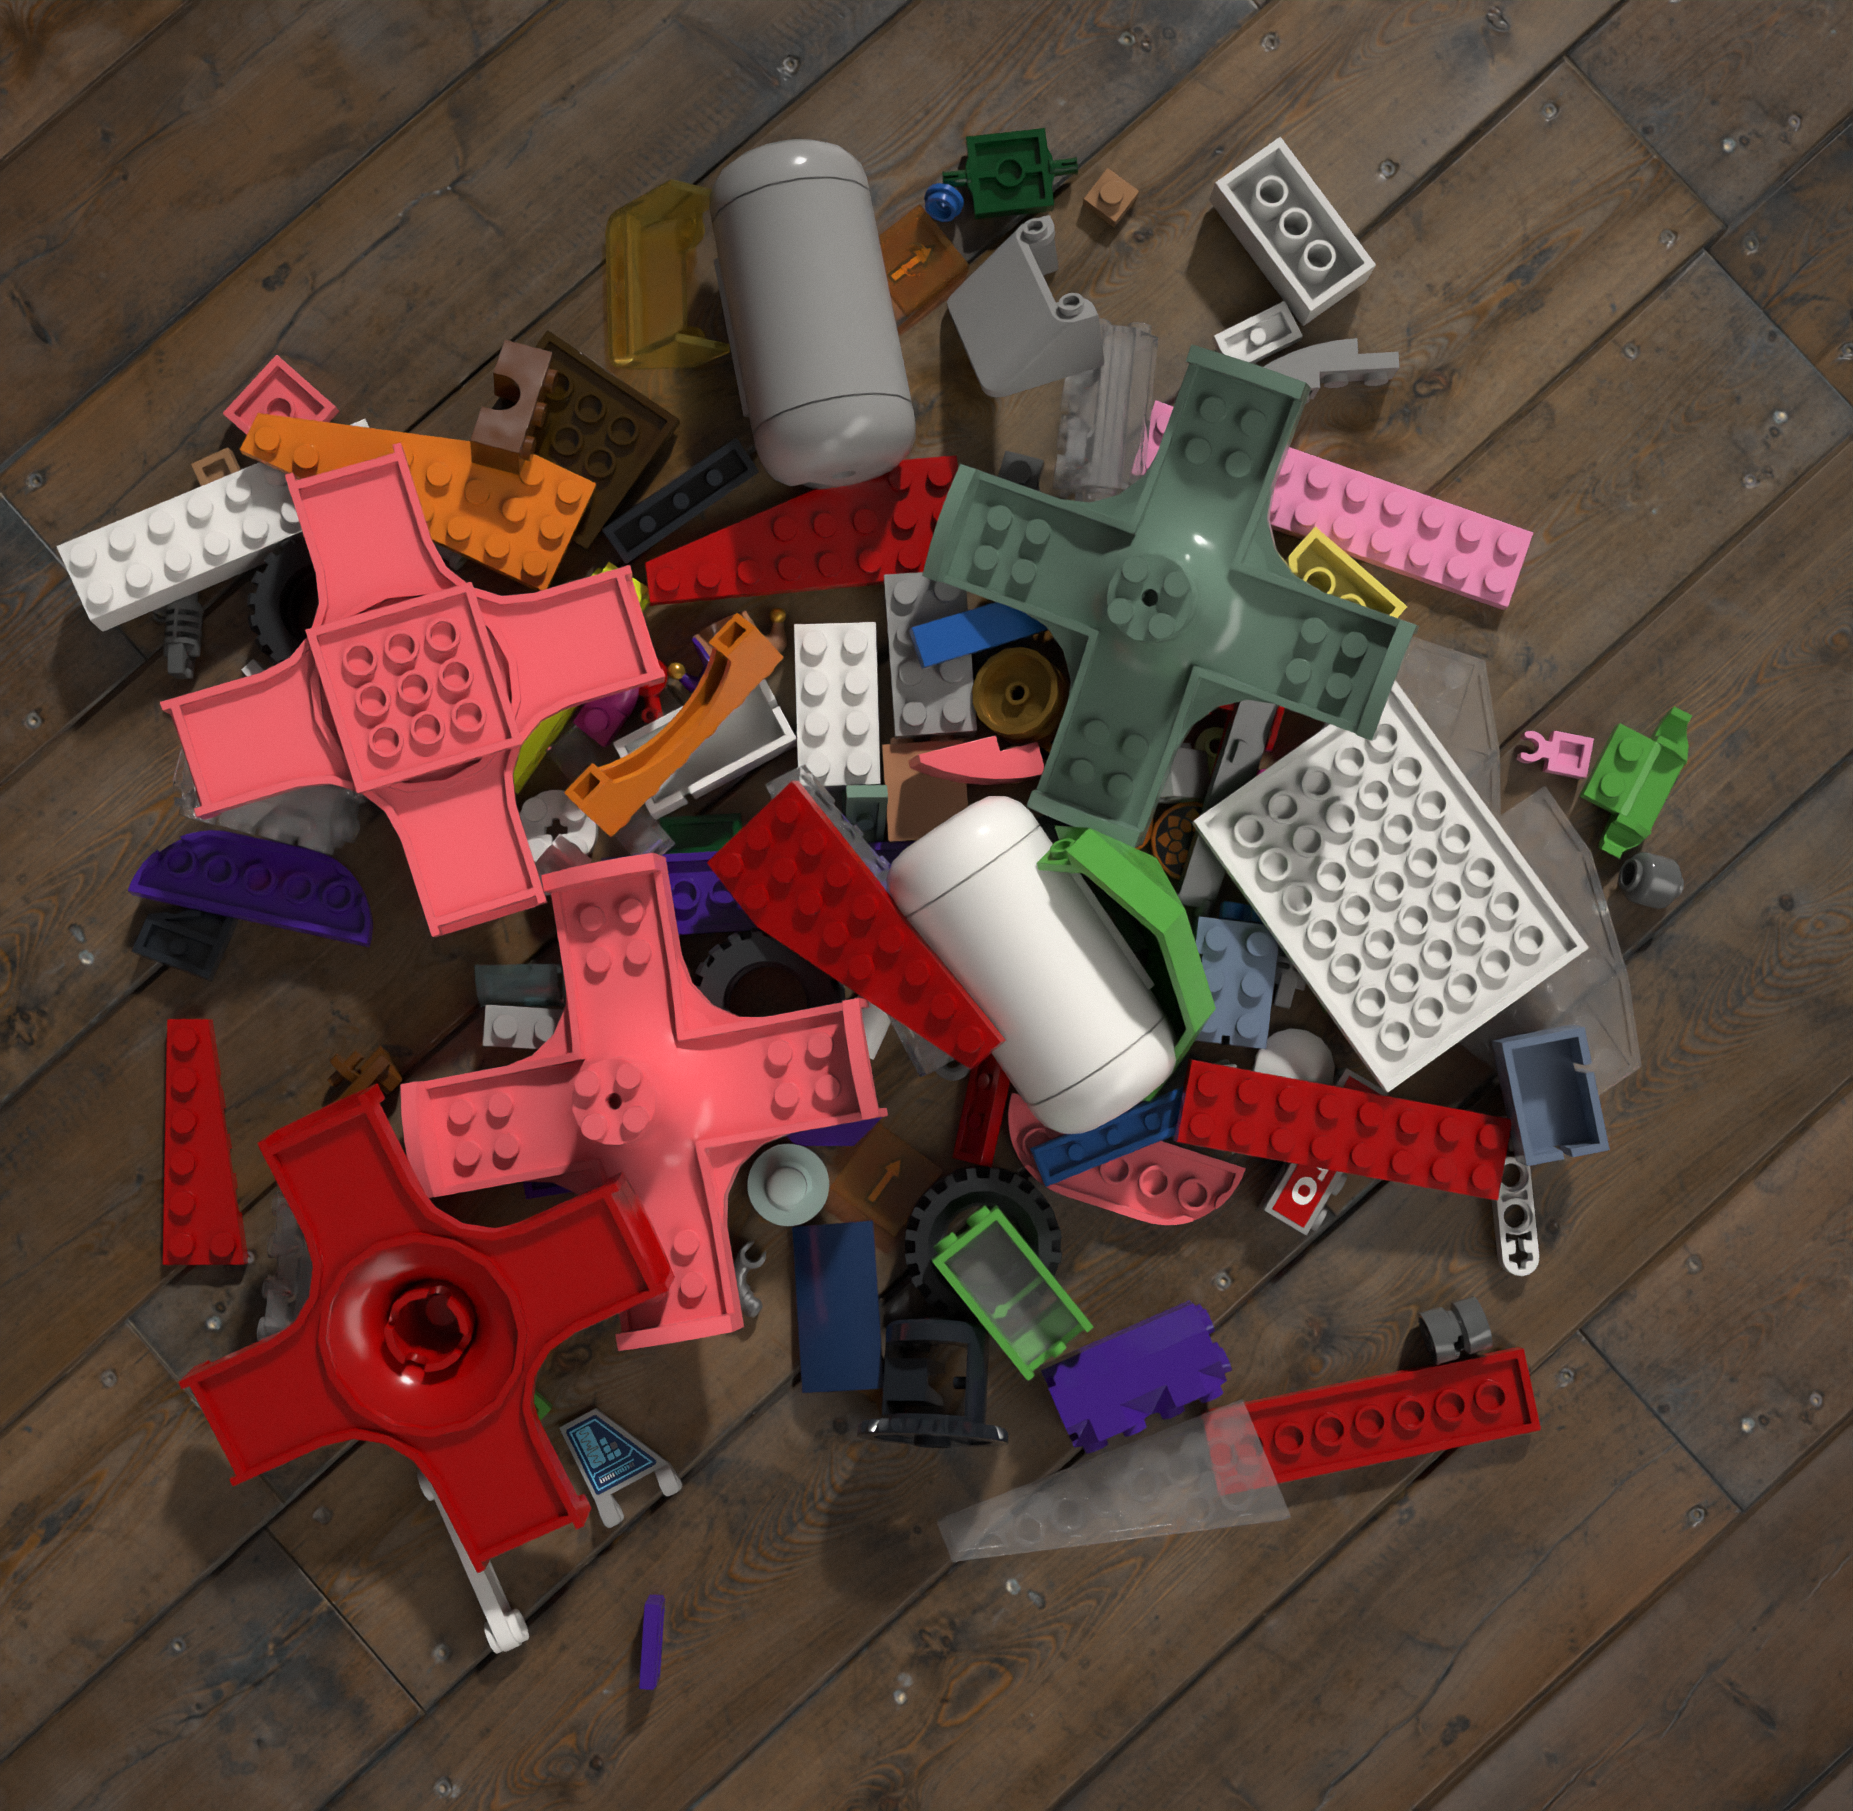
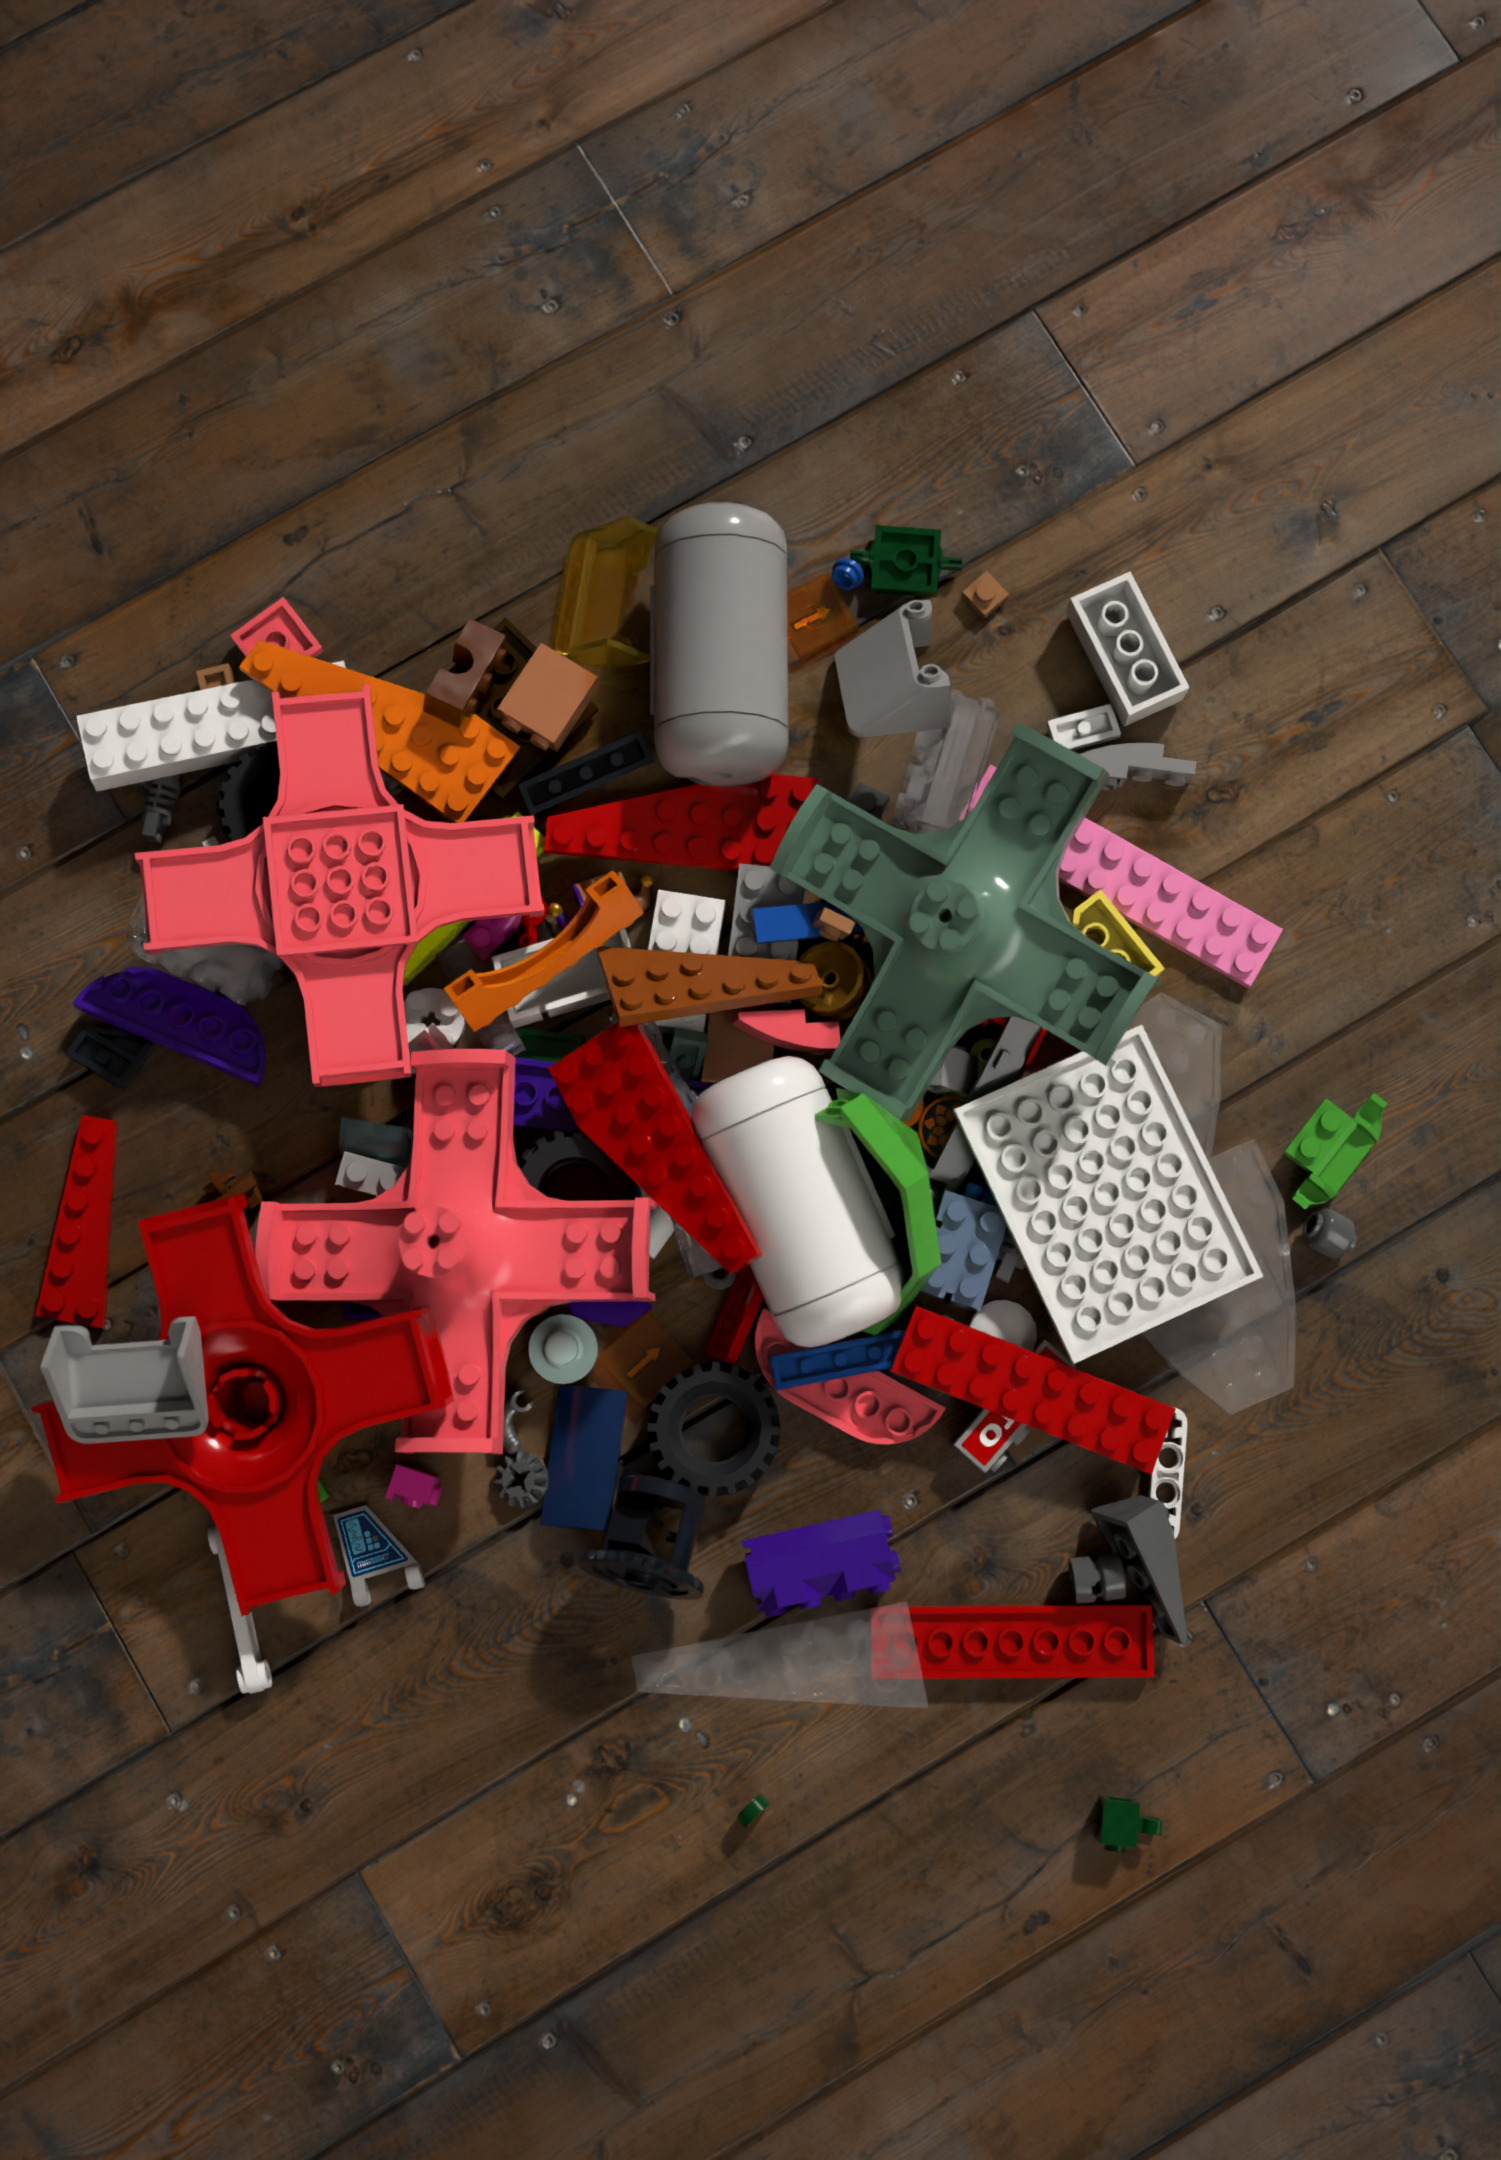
camera: 15 degrees right, 5 degrees down
(286, 1338) = (128, 1387): none -> light grey windscreen
(618, 419) = (548, 698): none -> nougat brick
(647, 1377) = (414, 1487): none -> dark pink brick
(652, 1642) = (373, 1709): dark purple tile -> none
(787, 1345) = (535, 1483): none -> dark grey gear
(839, 735) = (680, 984): none -> dark orange wing
(1009, 628) = (832, 924): none -> medium nougat plate
(1009, 1290) = (728, 1467): clear door -> none
(1111, 1670) = (753, 1810): none -> dark green tile
(1510, 1286) = (1147, 1545): none -> dark grey wedge
(1533, 1602) = (1120, 1823): none -> dark green brick
(1548, 1097) = (1208, 1395): sand blue piece -> none
(1563, 753) = (1275, 1115): bright pink plate -> none

